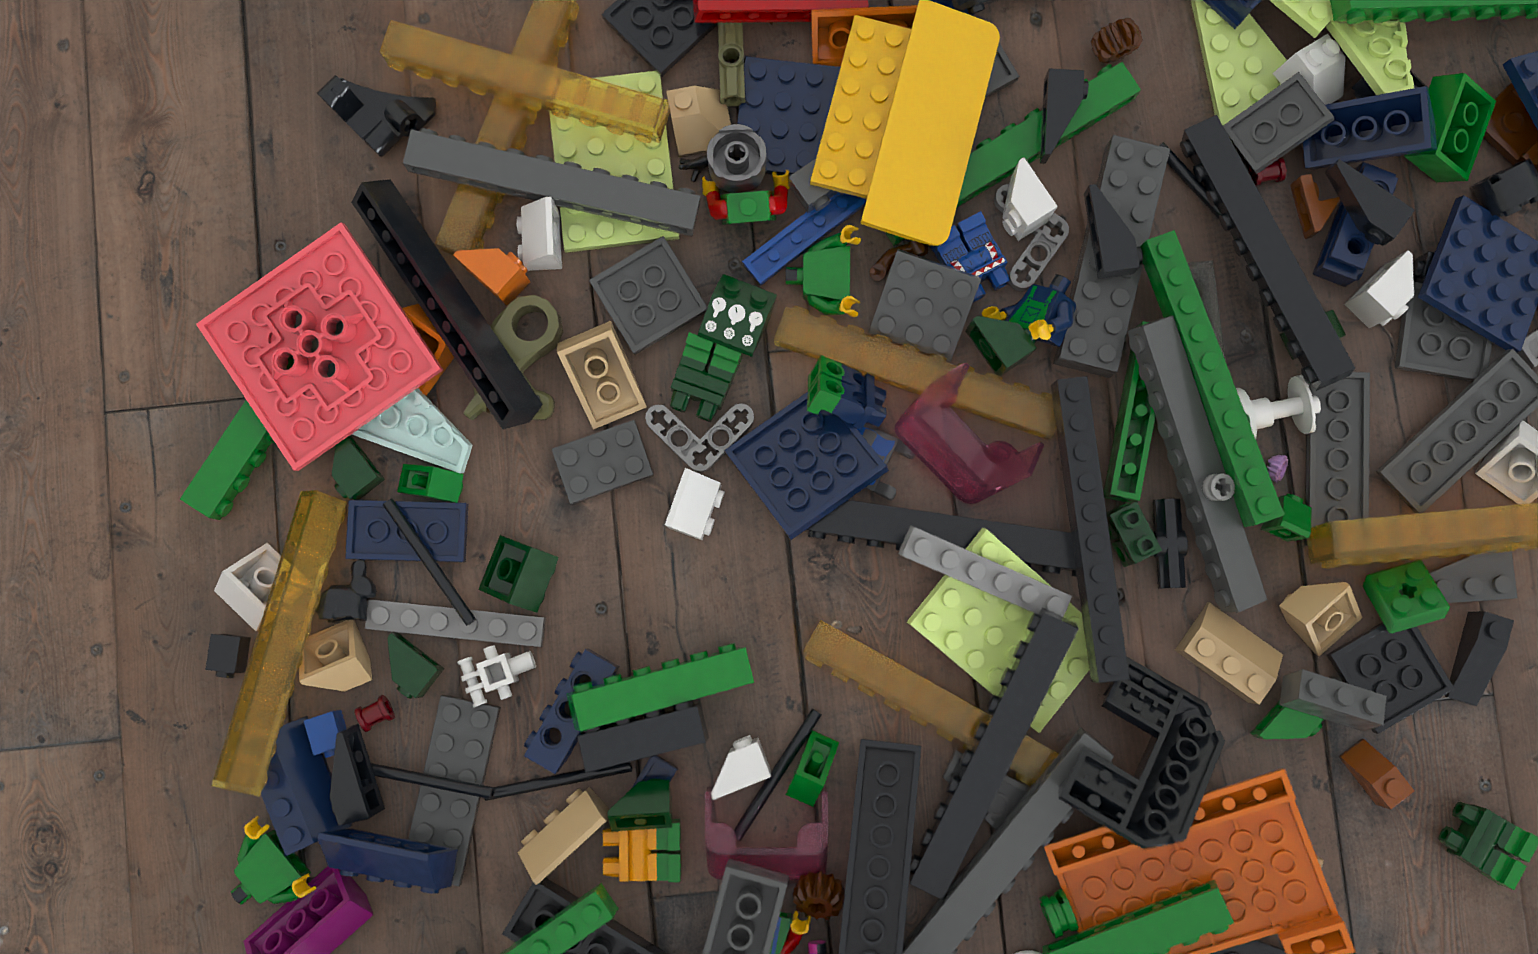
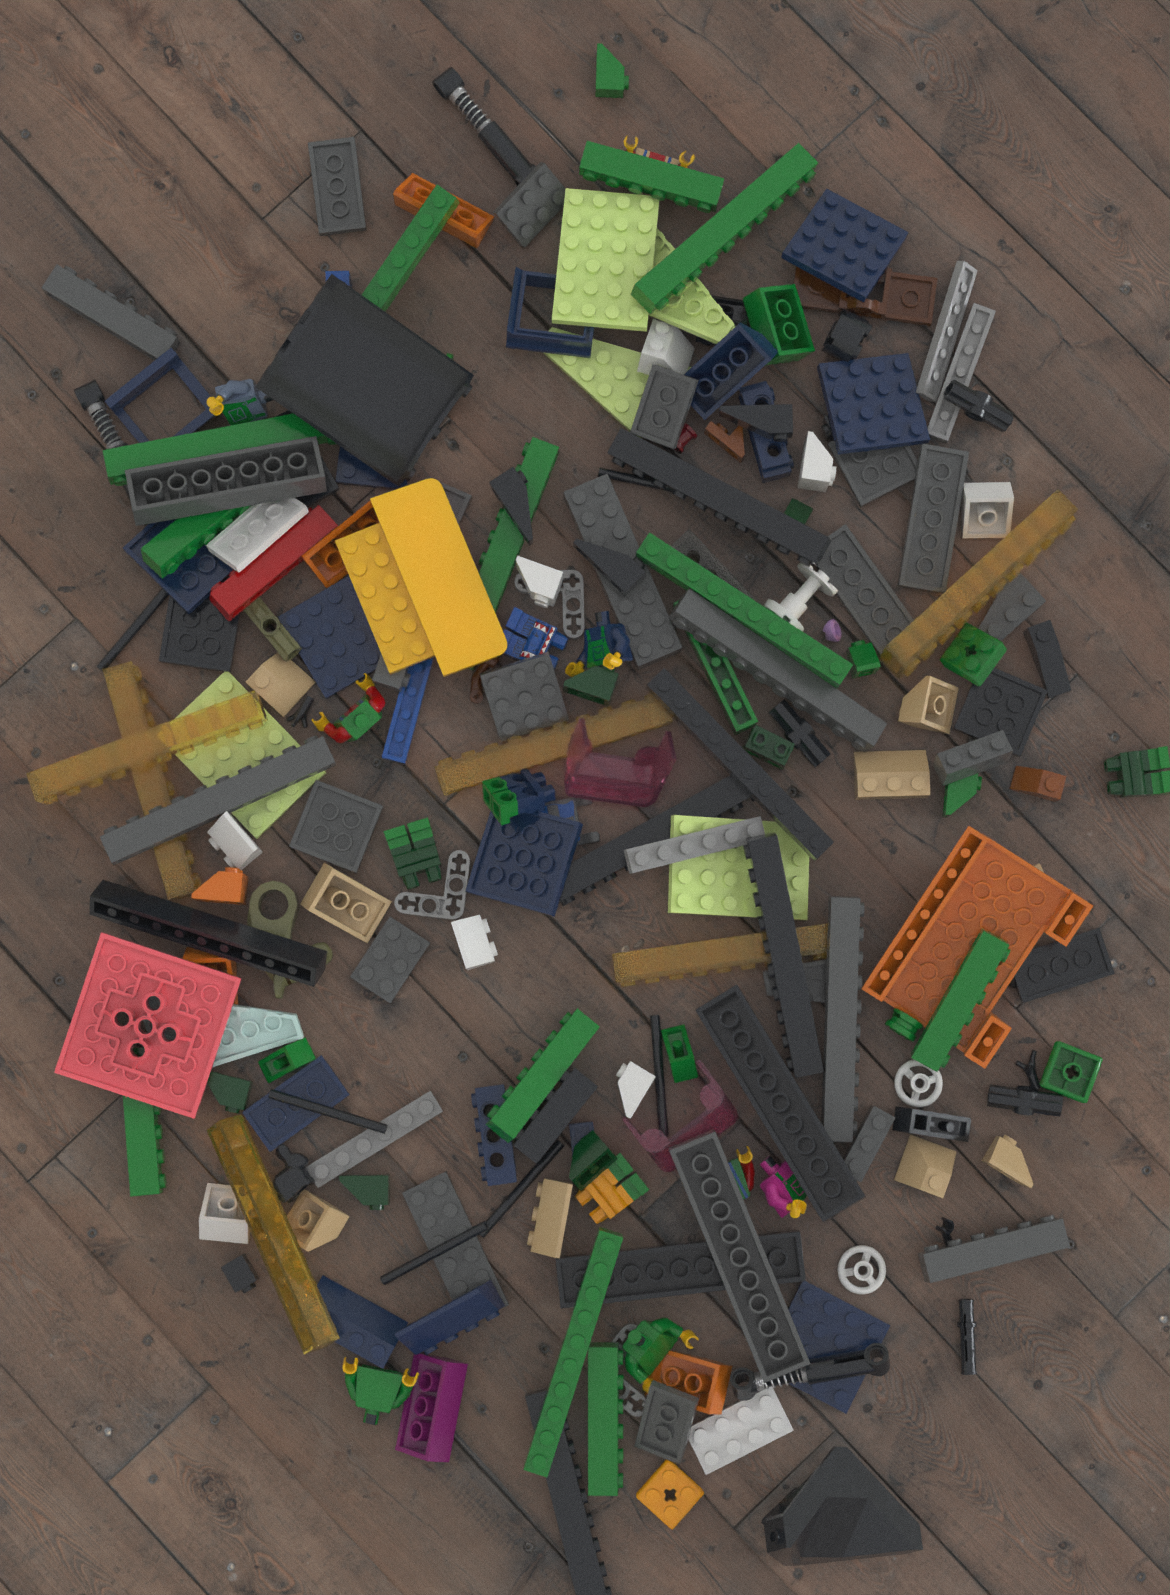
camera: 45 degrees left, 0 degrees up
(323, 732) = (347, 1273): blue brick -> none
(353, 782) = (391, 1292): black slope -> none
(374, 713) = (367, 1237): dark red bush -> none
(376, 115) = (59, 842): black panel -> none
(495, 673) = (427, 1148): white piece -> none
(518, 574) = (391, 1074): dark green slope -> none
(734, 142) = (334, 681): flat silver brick -> none
(737, 315) = (406, 796): dark green slope -> none
(818, 895) = (744, 1130): reddish brown gear -> none
(827, 274) = (444, 724): torso -> none
(1116, 40) = (518, 424): reddish brown gear -> none
(1173, 772) = (905, 881): black slope -> none
(1222, 479) = (800, 683): light grey bush -> none

